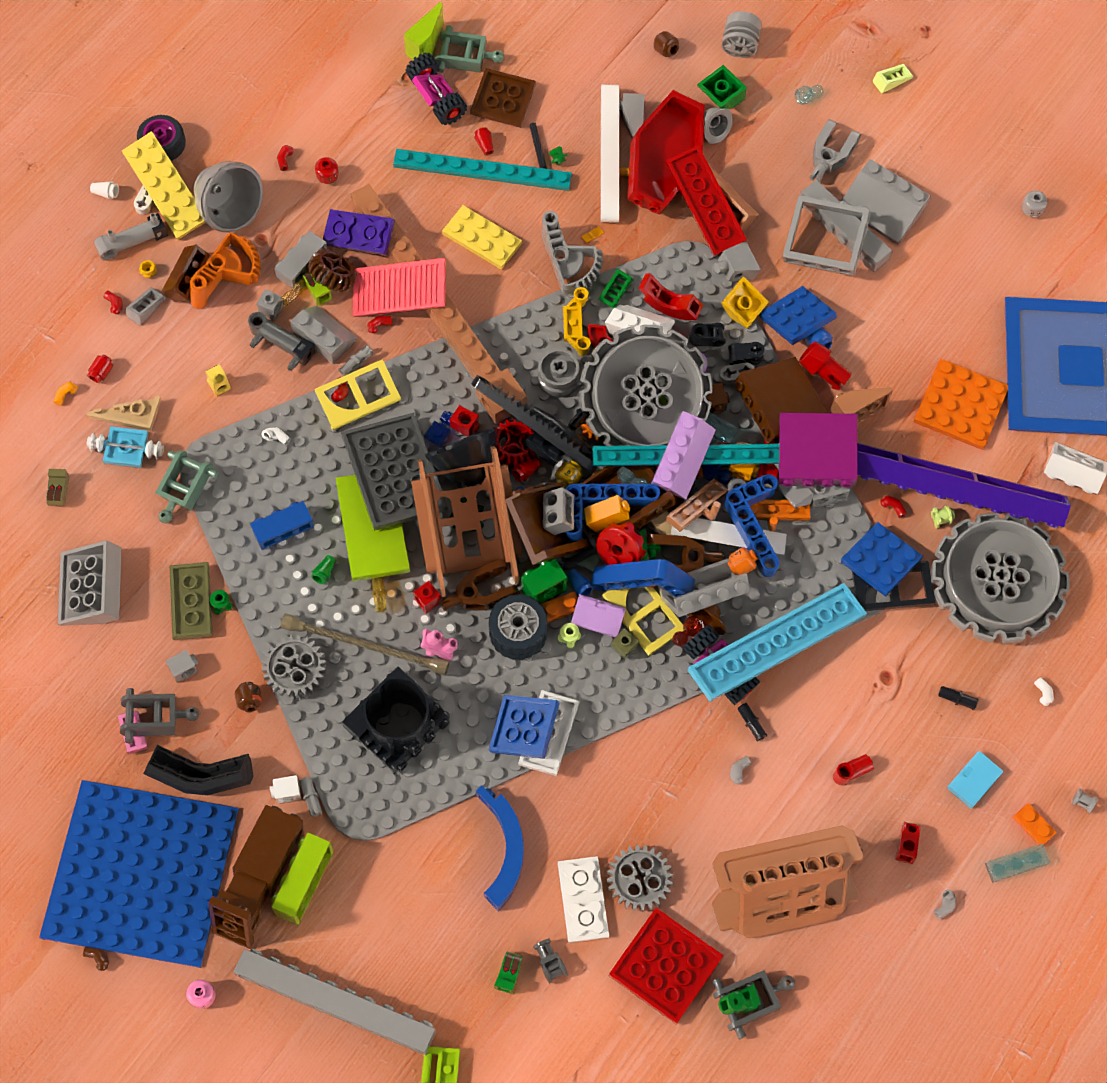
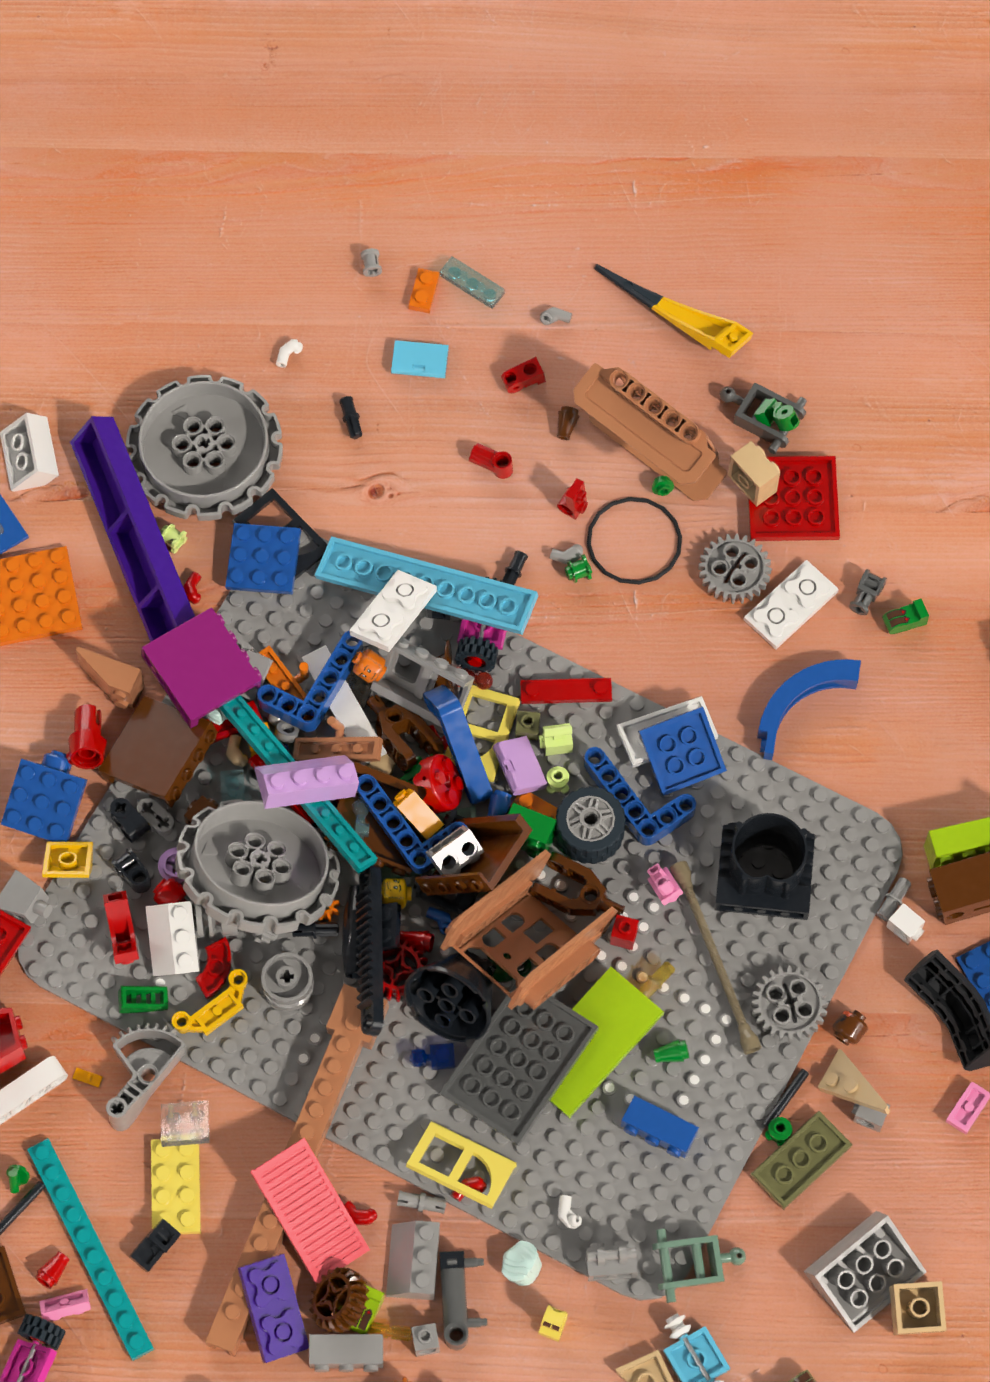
camera: 125 degrees left, 0 degrees up
(37, 593) = (917, 1308): none -> tan brick
(157, 727) = (923, 1081): dark grey piece -> none
(211, 663) = (848, 1083): none -> tan wing
(224, 435) = (611, 1261): none -> light grey brick
(238, 622) = (786, 1097): none -> black bar
(269, 389) = (521, 1263): none -> light aqua hair
(453, 200) = (154, 1245): none -> black slope
(457, 133) = (65, 1305): none -> bright pink plate
(462, 414) = (409, 1044): red brick -> none
(515, 261) = (185, 1123): none -> clear plate
(515, 670) = (632, 802): none -> blue beam
(599, 653) = (556, 739): none -> yellowish green brick
(632, 689) = (566, 690): none -> red plate
(697, 792) = (634, 500): none -> black piece
(700, 939) = (754, 473): none -> tan brick
(720, 766) = (578, 569): none -> green brick
(770, 597) = (393, 610): none -> white piece
(777, 801) = (574, 500): none -> red plate
(854, 1009) = (707, 329): none -> yellow plate

